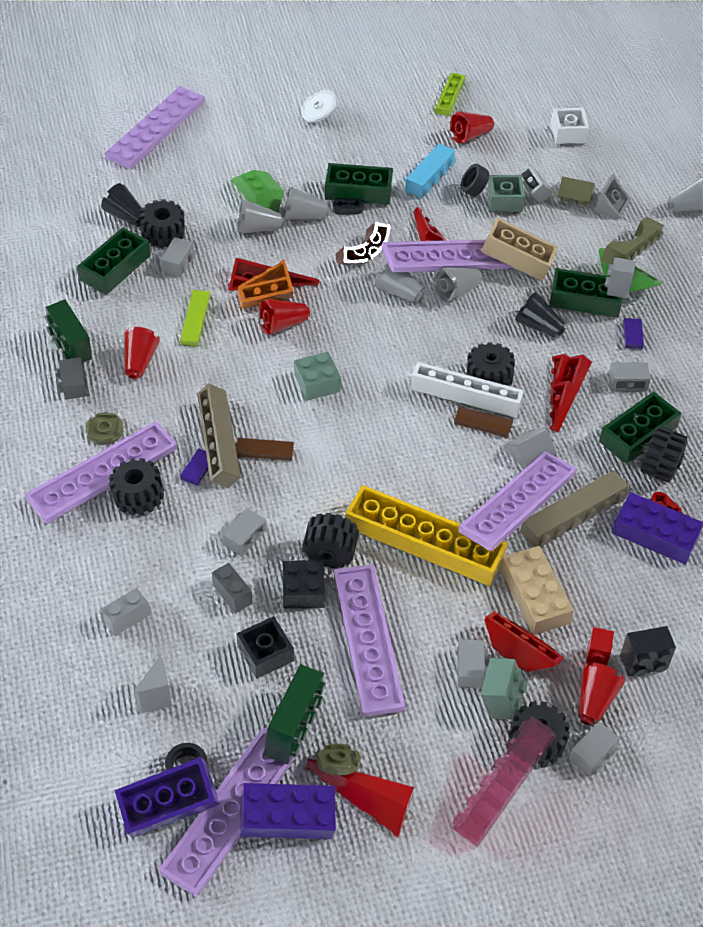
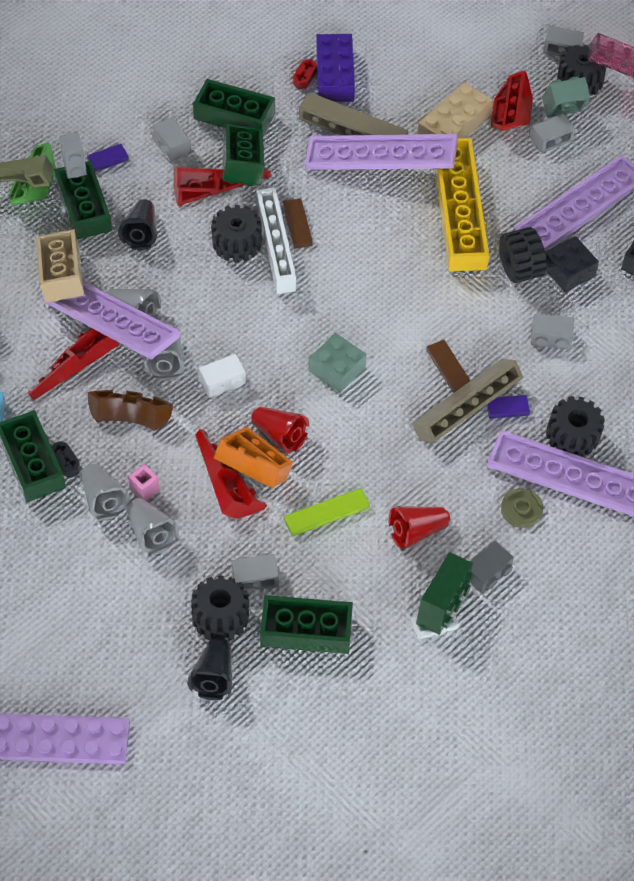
camera: 120 degrees left, 5 degrees up
(232, 587) = (613, 309): dark grey brick -> none
(260, 189) = (91, 557): bright green wedge -> none
(291, 227) = (144, 483): none -> bright pink brick
(356, 307) = (222, 375): none -> white brick
(530, 446) = (303, 180): light grey slope -> none
(571, 398) = (243, 155): none -> dark green brick
(598, 691) = (519, 51): red cone -> none
(599, 646) = (486, 59): red brick -> none
(647, 651) = (463, 32): black brick -> none
(664, 454) = (262, 73): black wheel -> none

